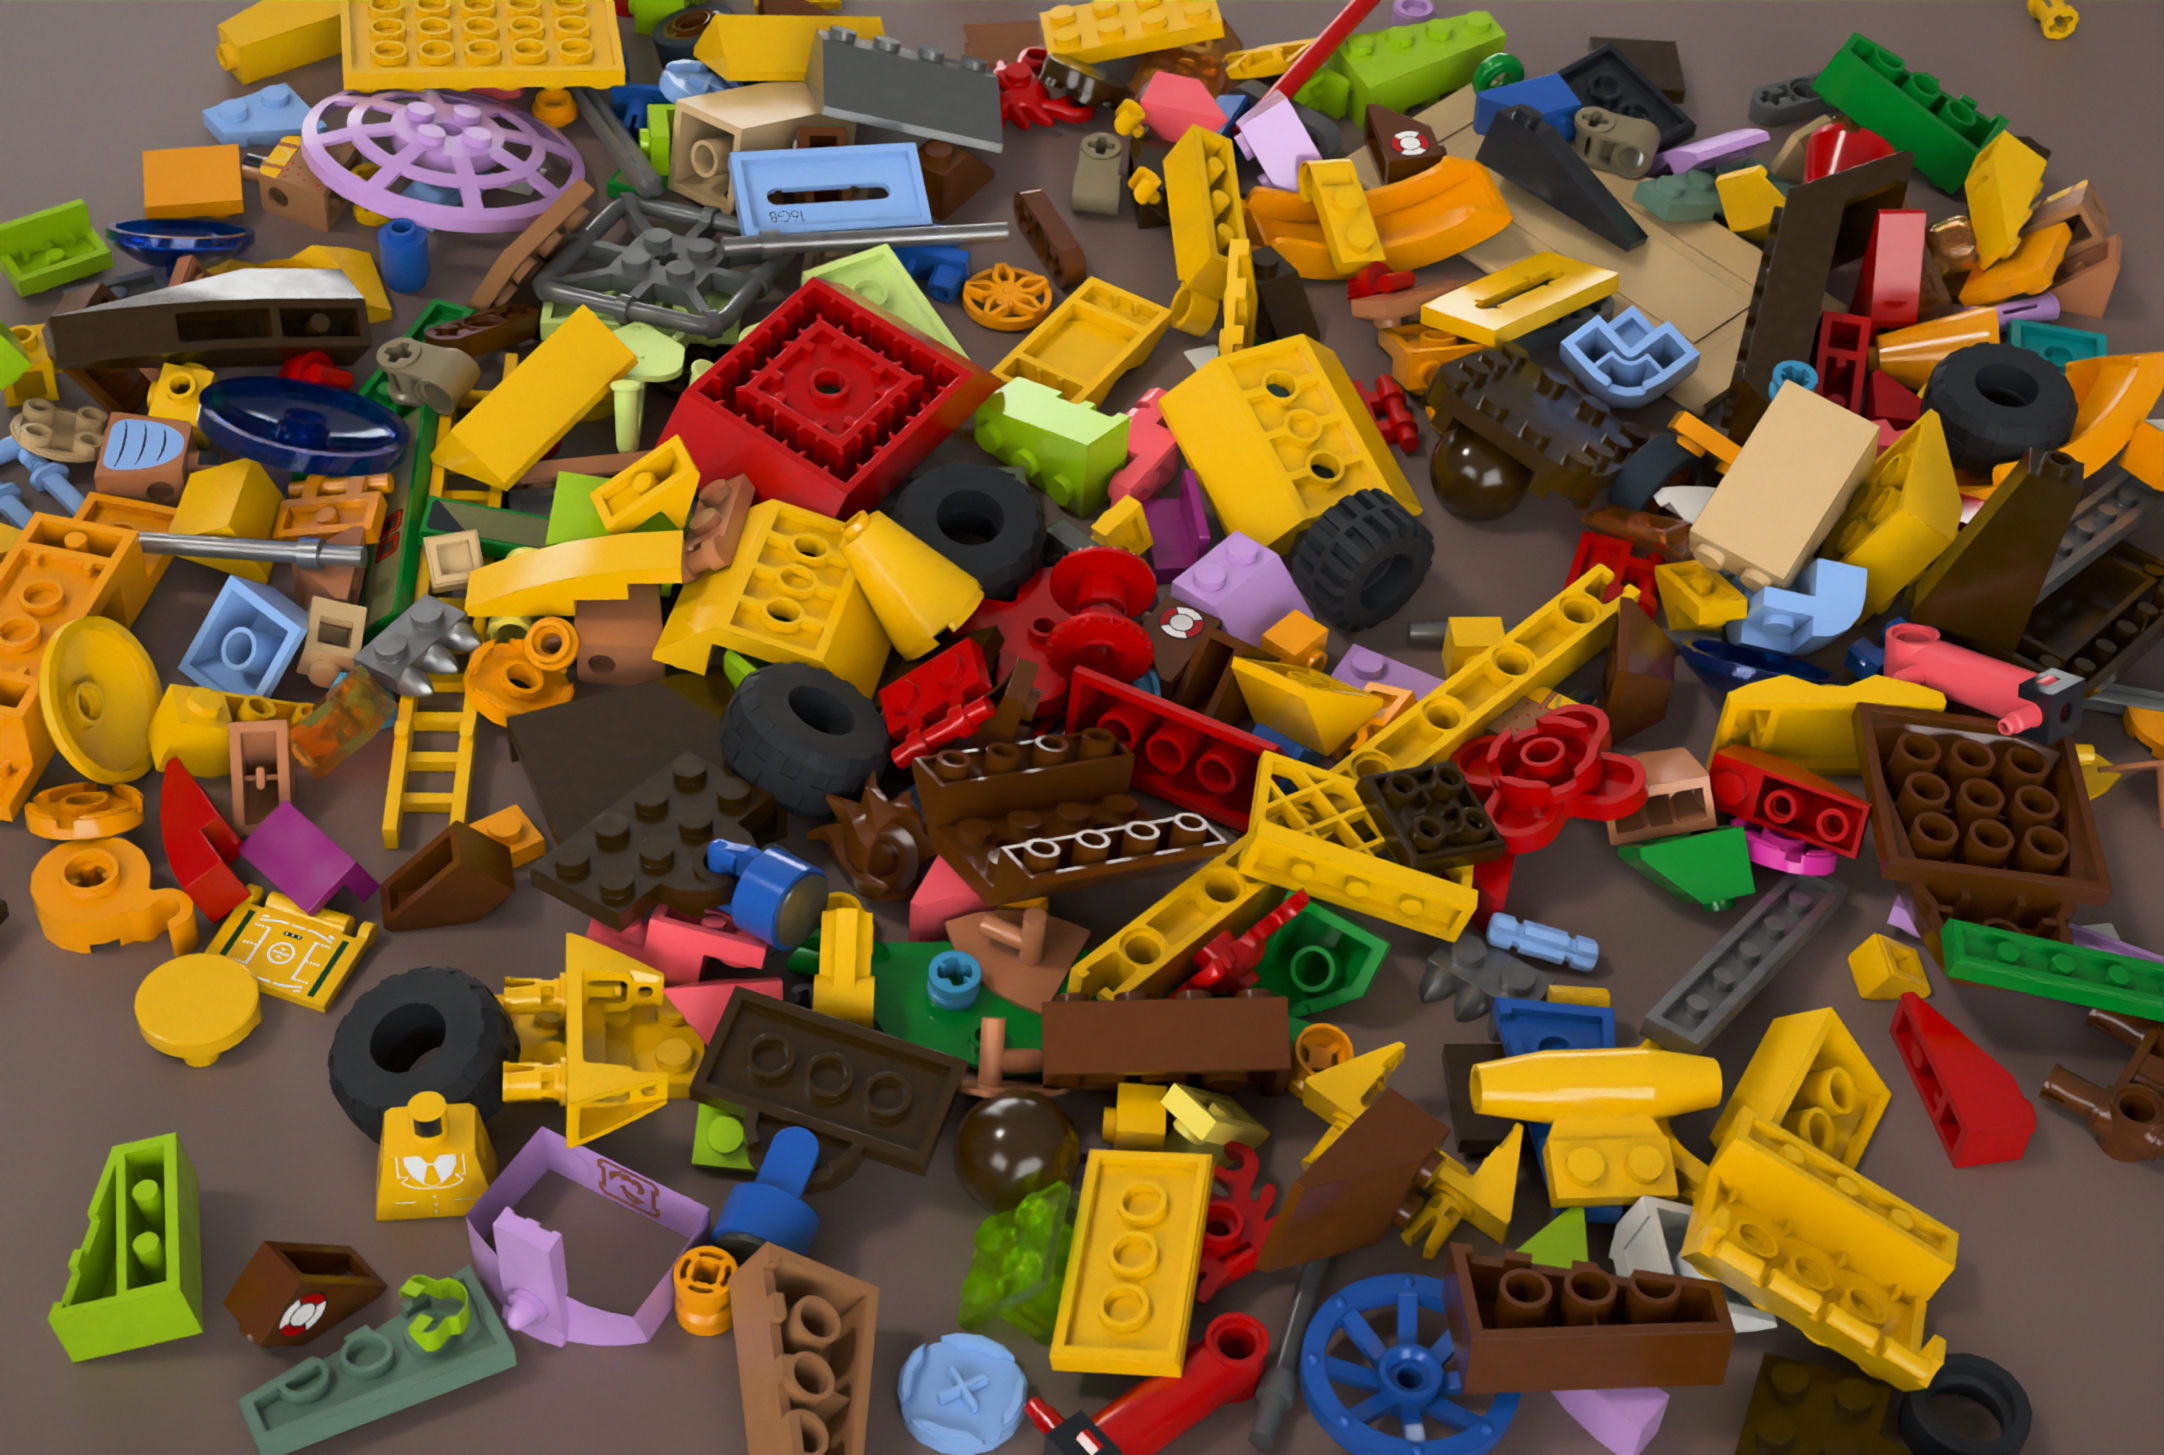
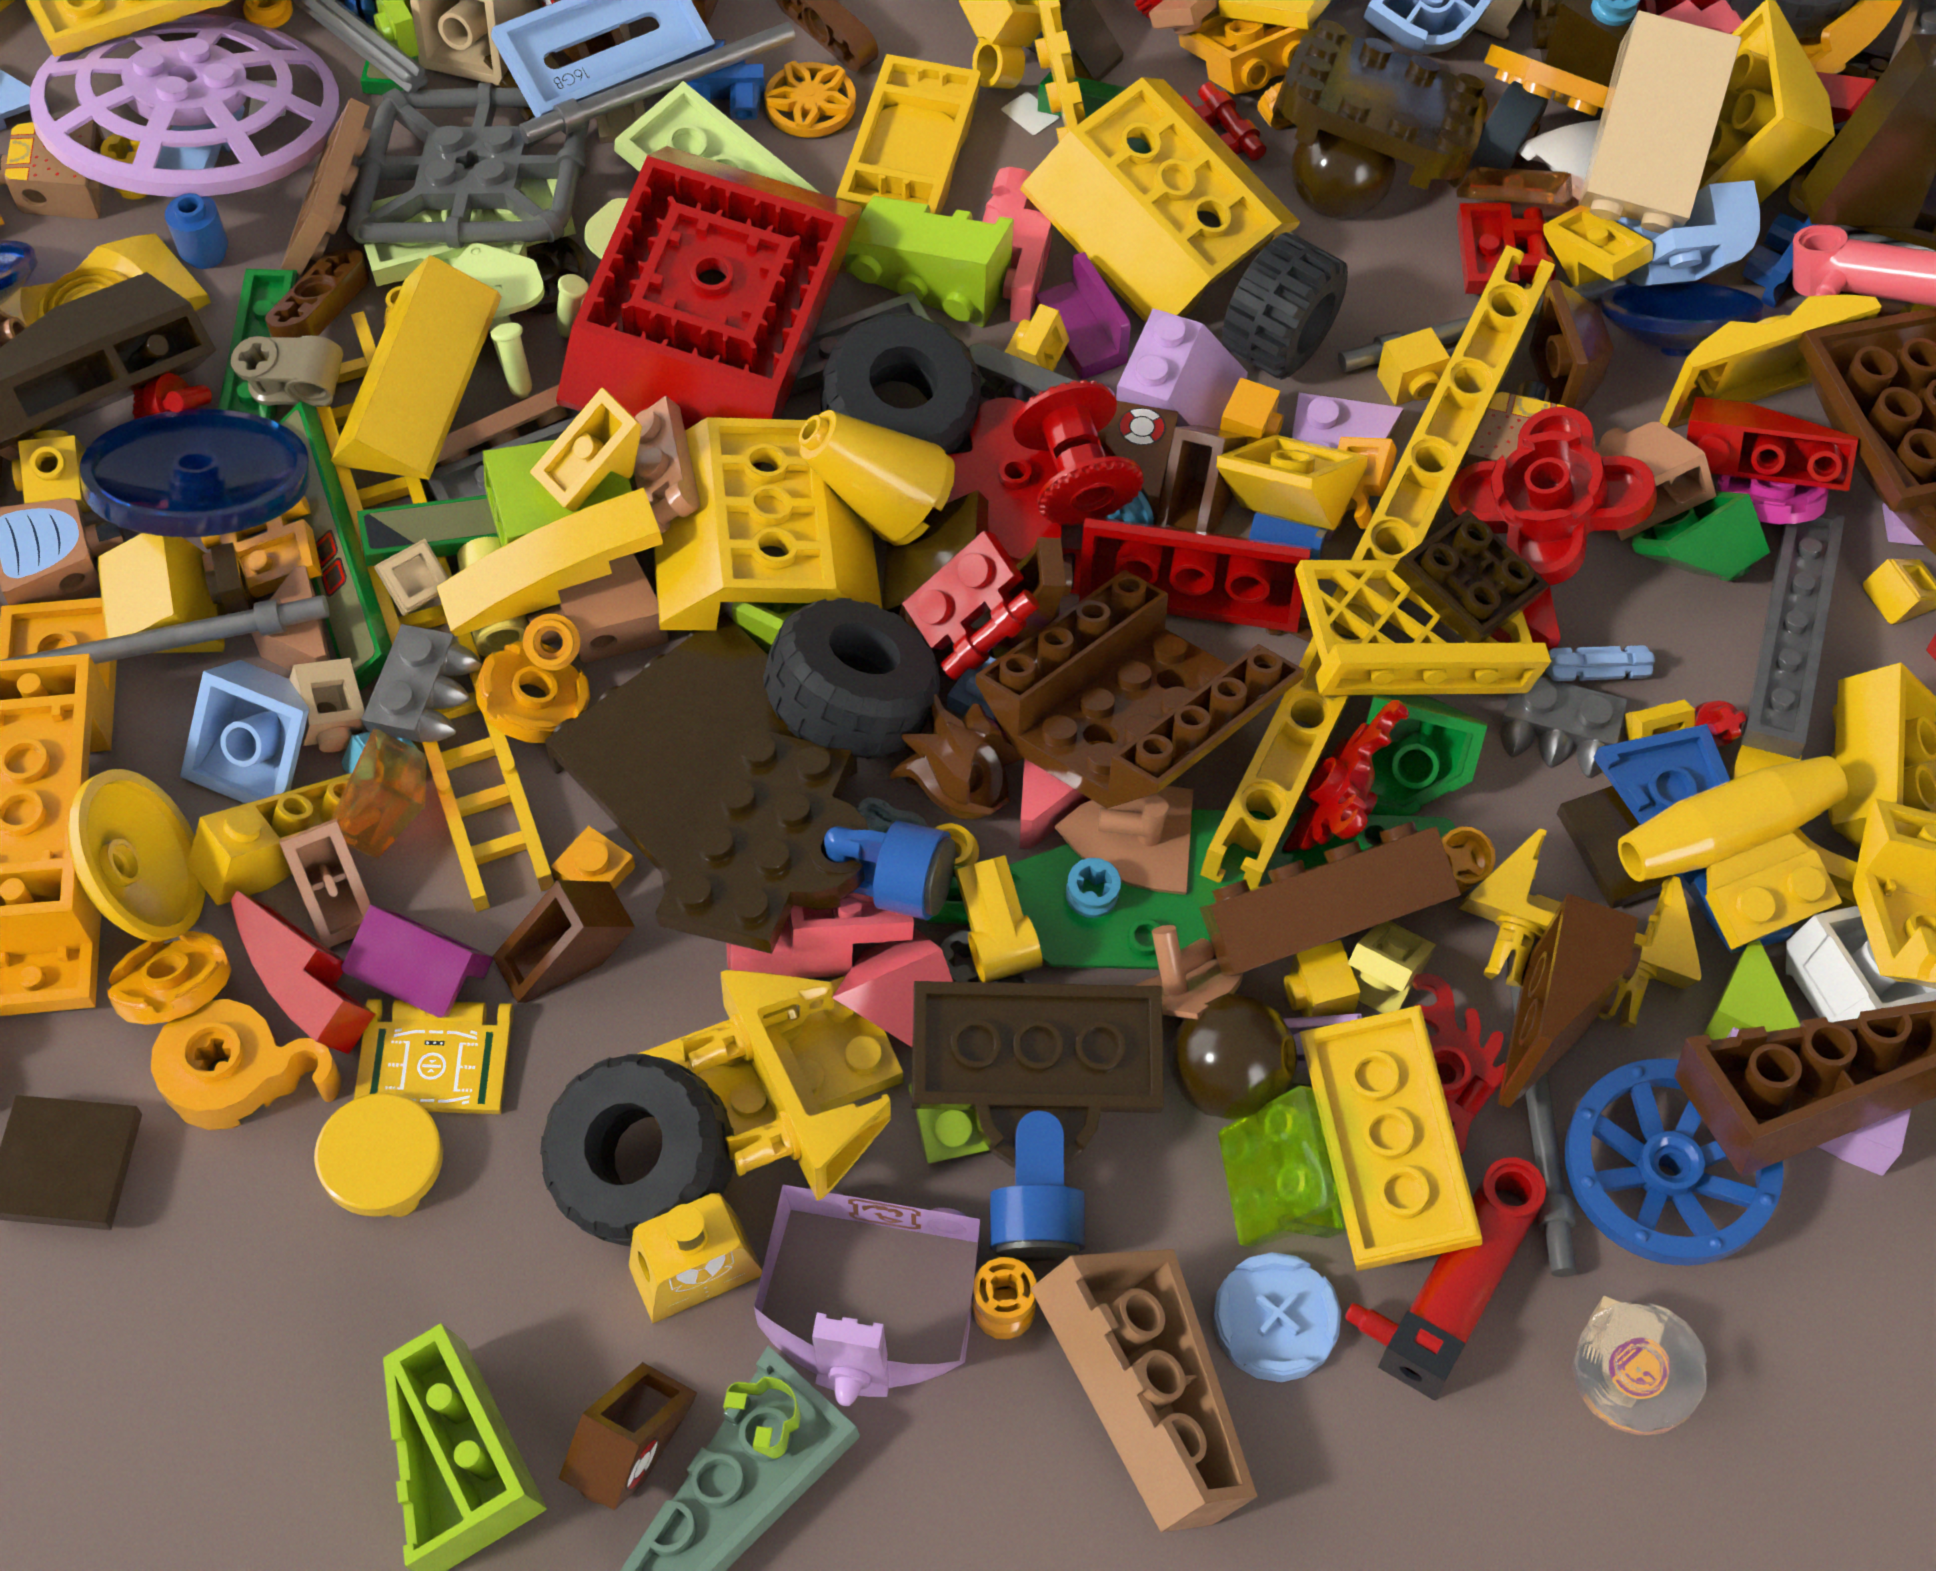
camera: 15 degrees left, 15 degrees up
(290, 516) = (228, 581): none -> dark brown plate
(1628, 1017) = (1722, 719): none -> red axle

